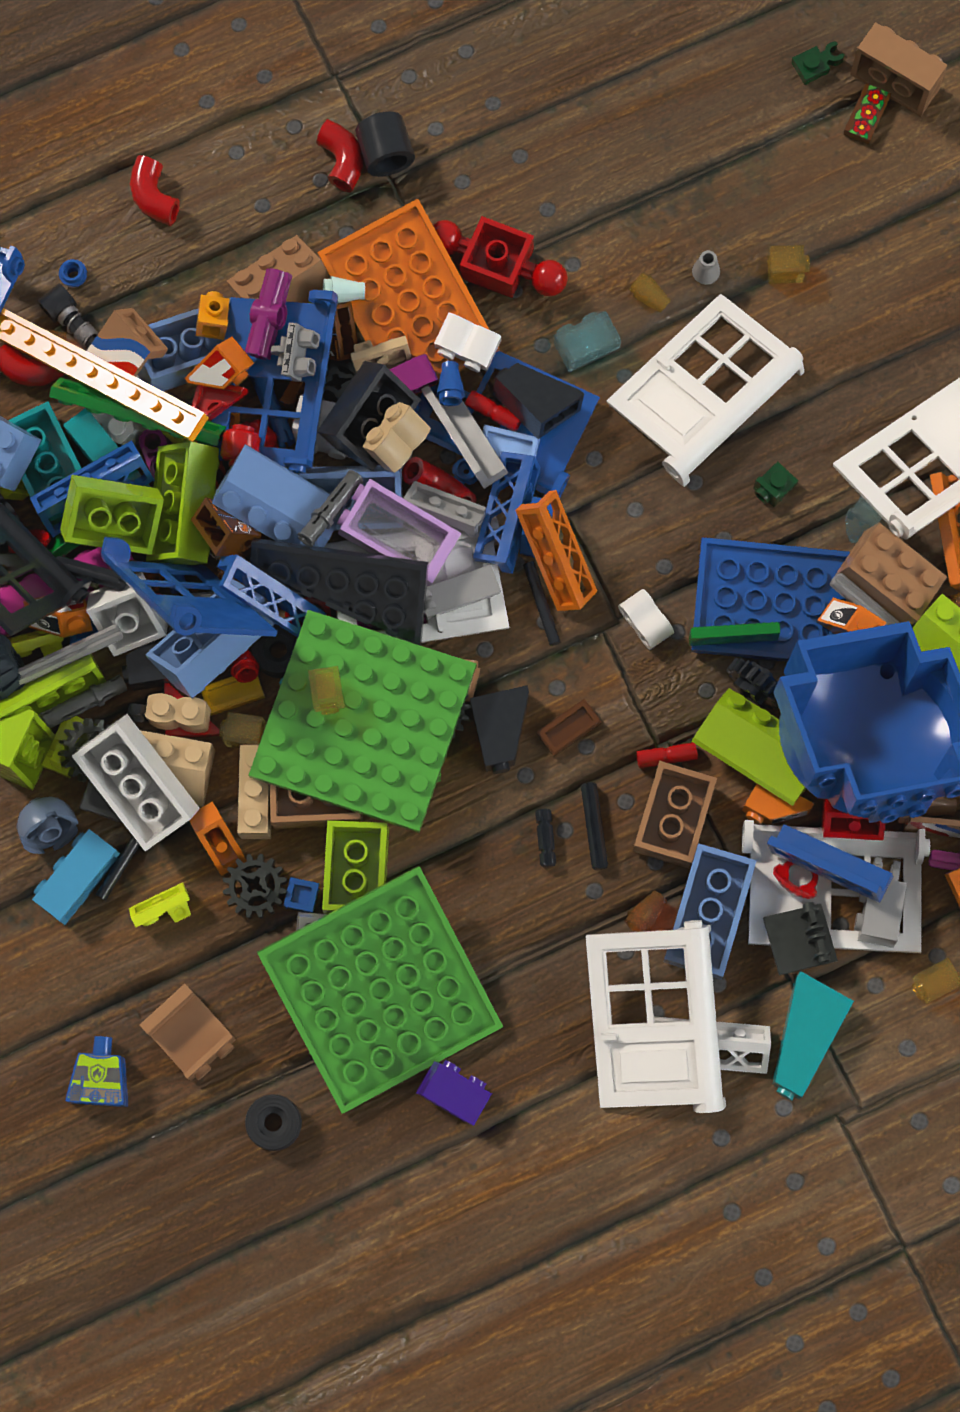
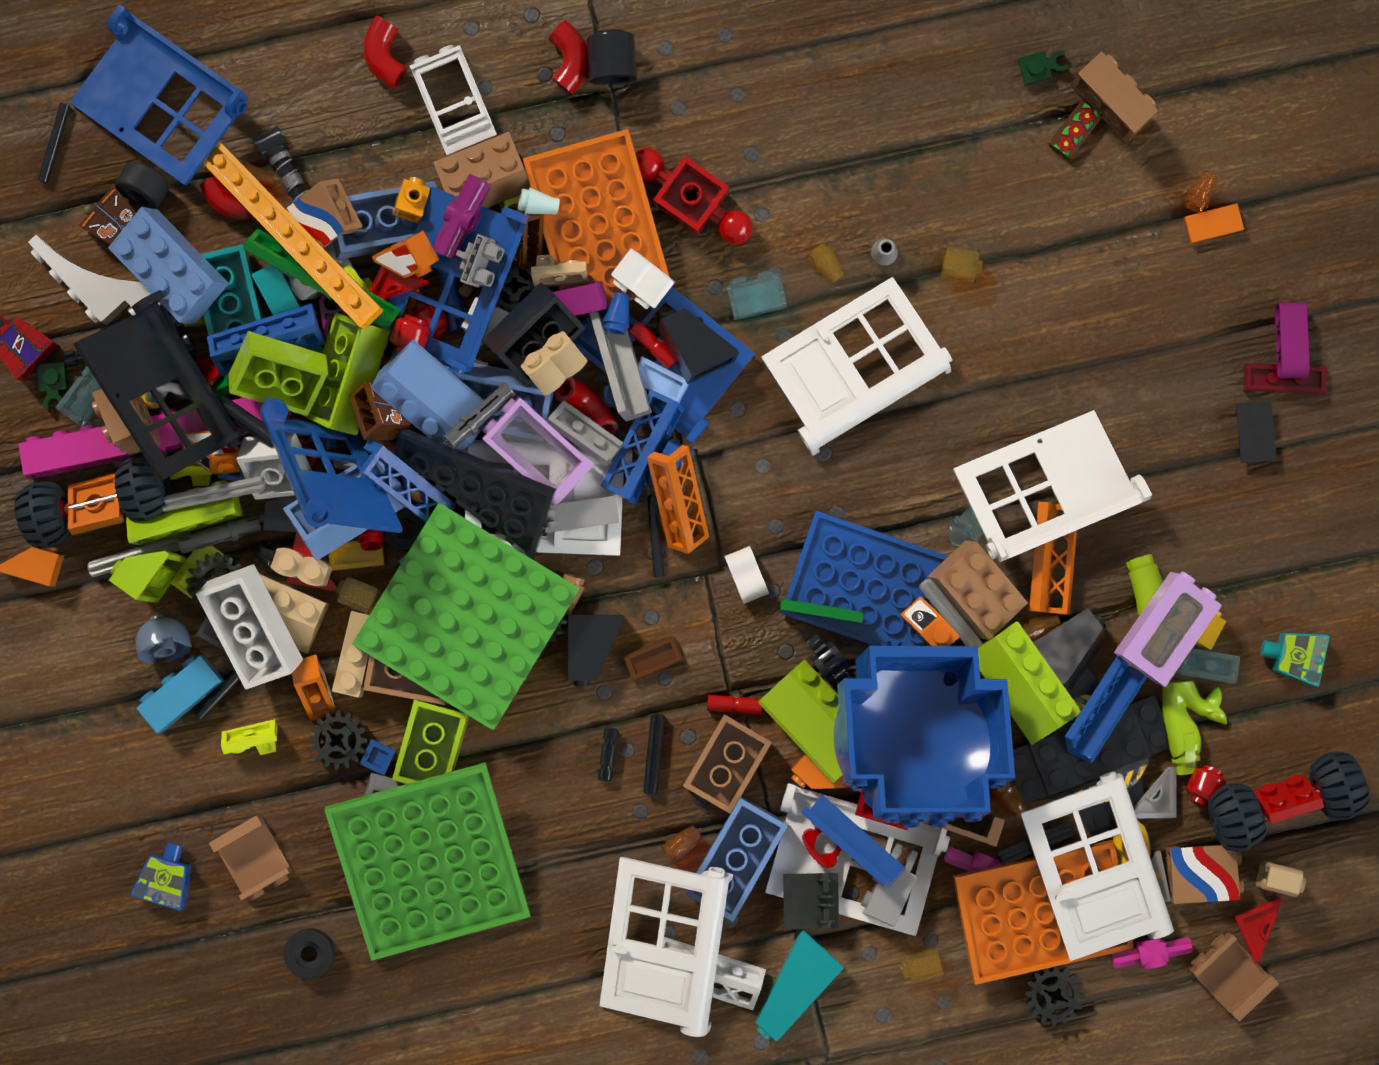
camera: 10 degrees right, 10 degrees up
(70, 266) = (289, 108): blue plate -> none
(250, 247) = (467, 132): none -> white door
(326, 690) = (437, 586): clear yellow brick -> none
(453, 1092) = (473, 965): dark purple brick -> none
(774, 484) = (895, 474): dark green bracket -> none

